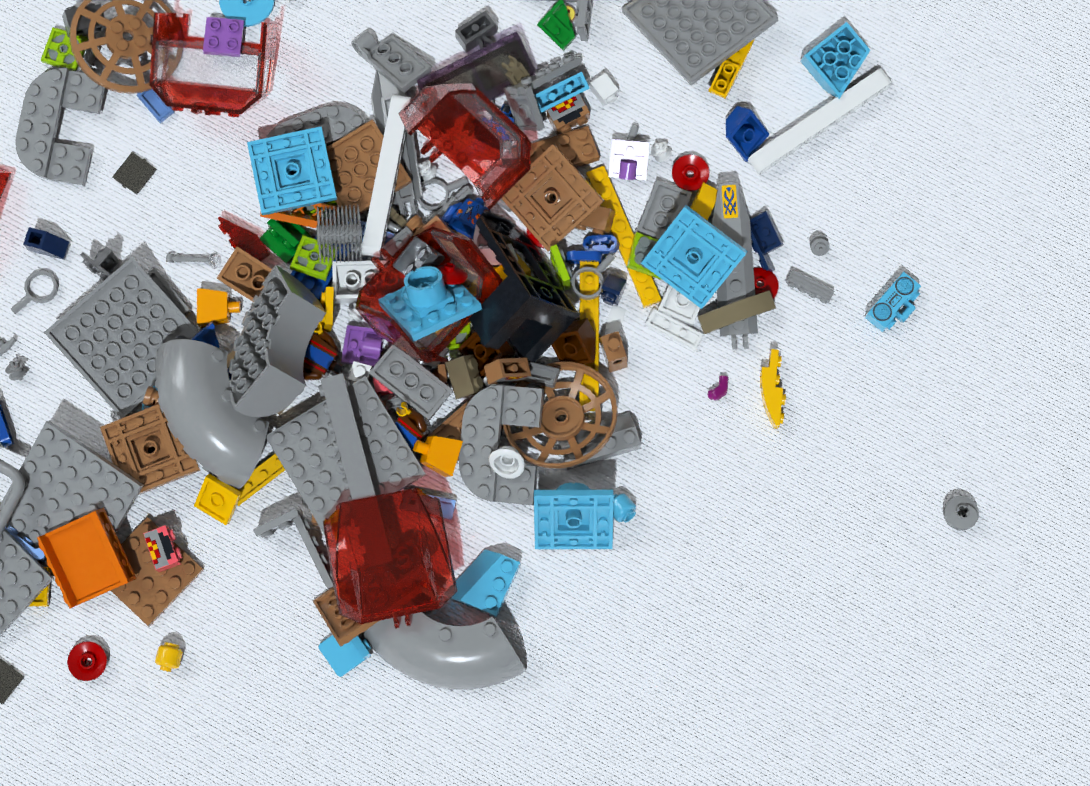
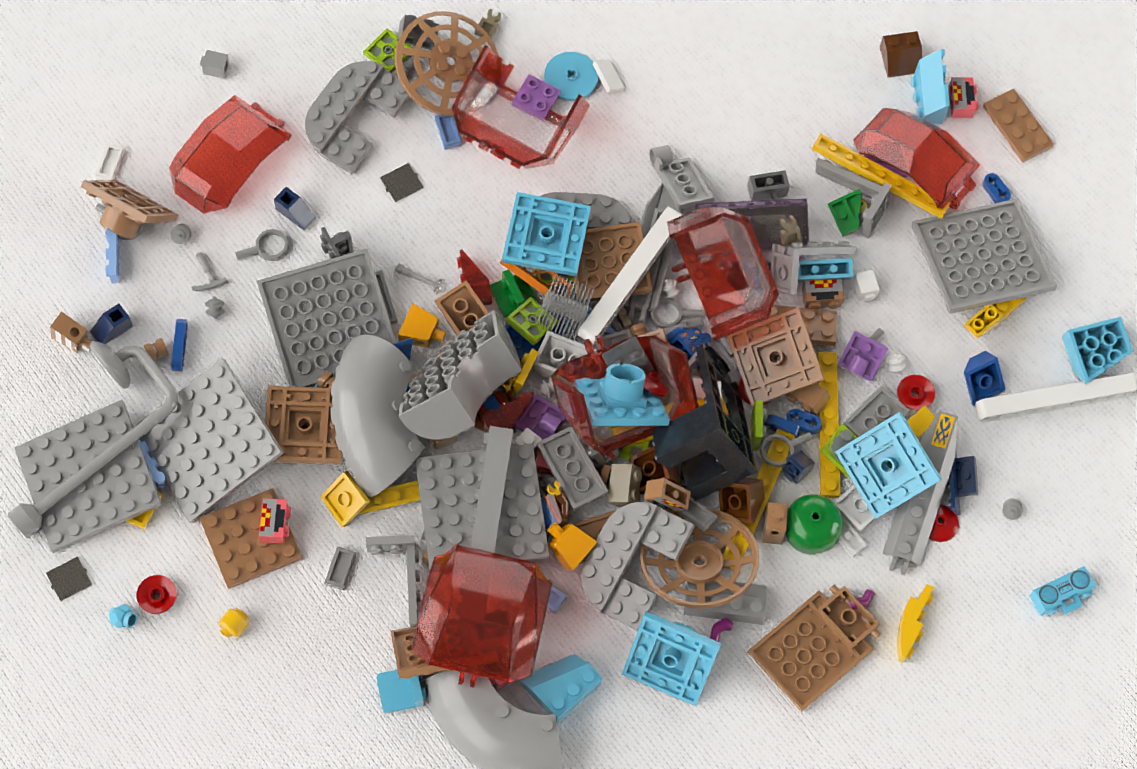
camera: 15 degrees right, 10 degrees down
(66, 694) = (122, 616): none -> medium azure rock
(86, 558) = (200, 498): orange panel -> none
(241, 563) = (340, 568): none -> light grey tile
(331, 357) = (508, 413): none -> clear red slope
(507, 462) = (630, 578): white hat -> none
(603, 468) = (719, 627): none -> magenta arm
(623, 508) = (722, 671): medium azure head -> none
(648, 349) = (813, 535): none -> green cylinder
(696, 447) = (816, 645): none -> medium nougat plate
(736, 312) = (907, 535): dark tan slope -> none
(810, 287) = (987, 543): light grey piece -> none

